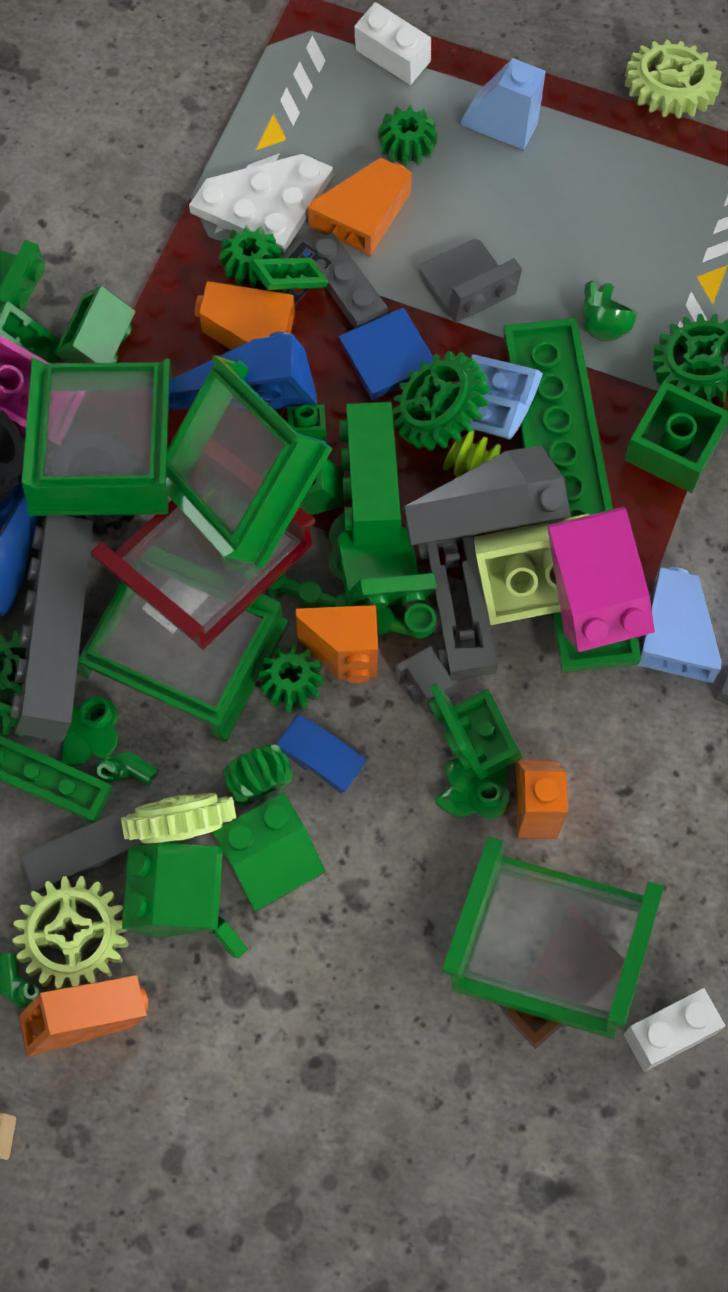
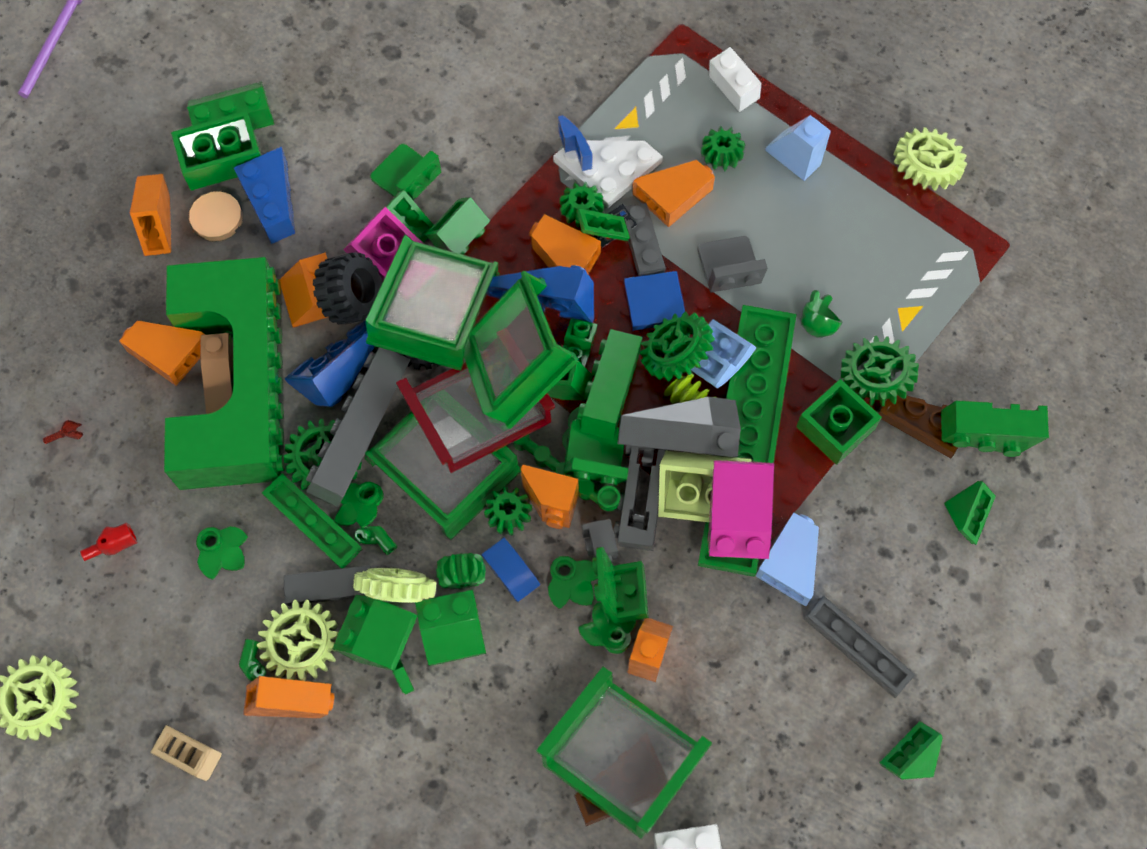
camera: 20 degrees right, 0 degrees up
(213, 175) = (574, 140): none -> blue slope
(410, 748) = (575, 585): none -> green plate

